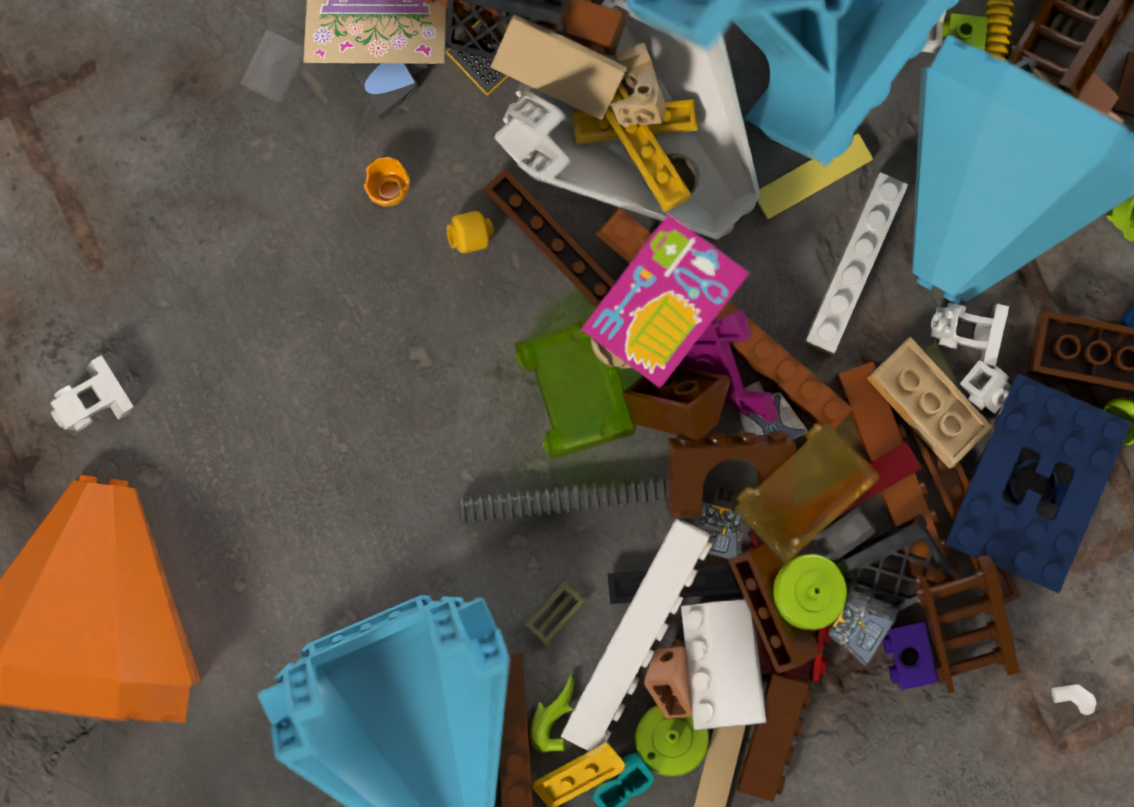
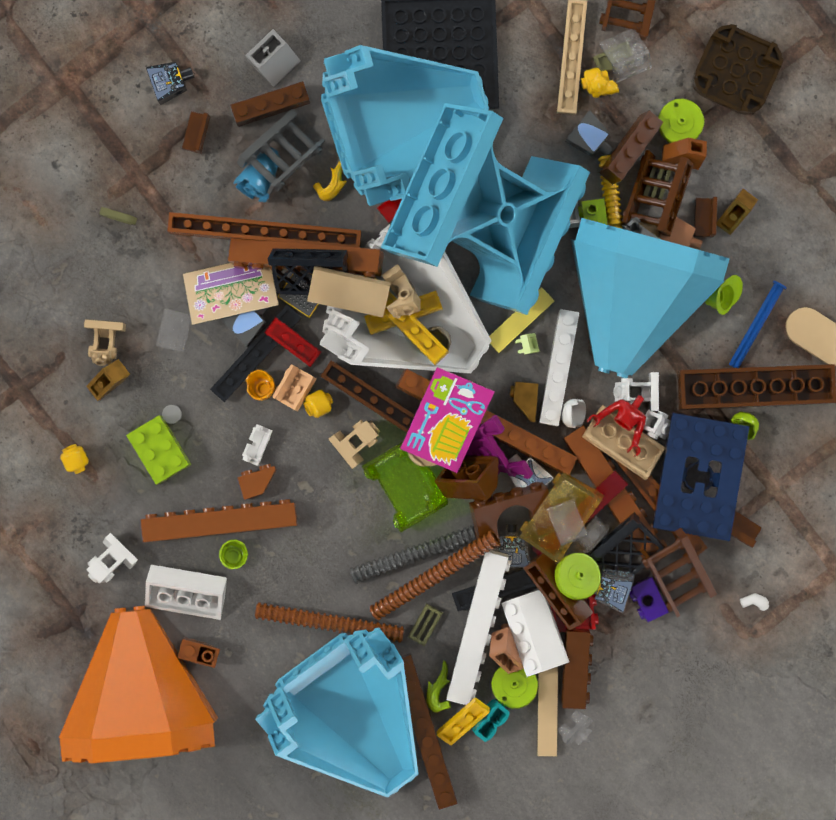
camera: 10 degrees left, 0 degrees up
(72, 228) = (74, 459): none -> yellow head
(153, 118) = (108, 379): none -> pearl gold slope
(167, 41) = (105, 330): none -> tan tile
(194, 572) = (198, 652): none -> dark orange slope
(195, 474) = (185, 592): none -> white slope
(206, 245) = (158, 450): none -> lime brick
(239, 195) = (172, 414): none -> light grey tile
(273, 378) = (219, 522): none -> dark orange brick
(283, 433) = (233, 554): none -> lime hair
(345, 331) = (256, 483): none -> dark orange slope
(368, 263) = (260, 438): none -> white hinge
(391, 131) = (251, 357): none -> black plate
(399, 570) = (324, 621): none -> dark orange piece
(438, 198) = (294, 387): none -> light nougat bracket
(453, 127) = (292, 342): none -> red tile
(535, 294) = (365, 431): none -> tan tile
(588, 538) = (434, 575): none -> dark orange piece
(793, 299) = (525, 398): none -> pearl gold slope
(813, 504) = (567, 522): none -> clear plate
(817, 216) = (529, 343): none -> yellowish green tile
(862, 339) = (573, 413): none -> white hair
(943, 364) = (627, 417): none -> red piece
(1085, 583) = (745, 530): none -> reddish brown panel

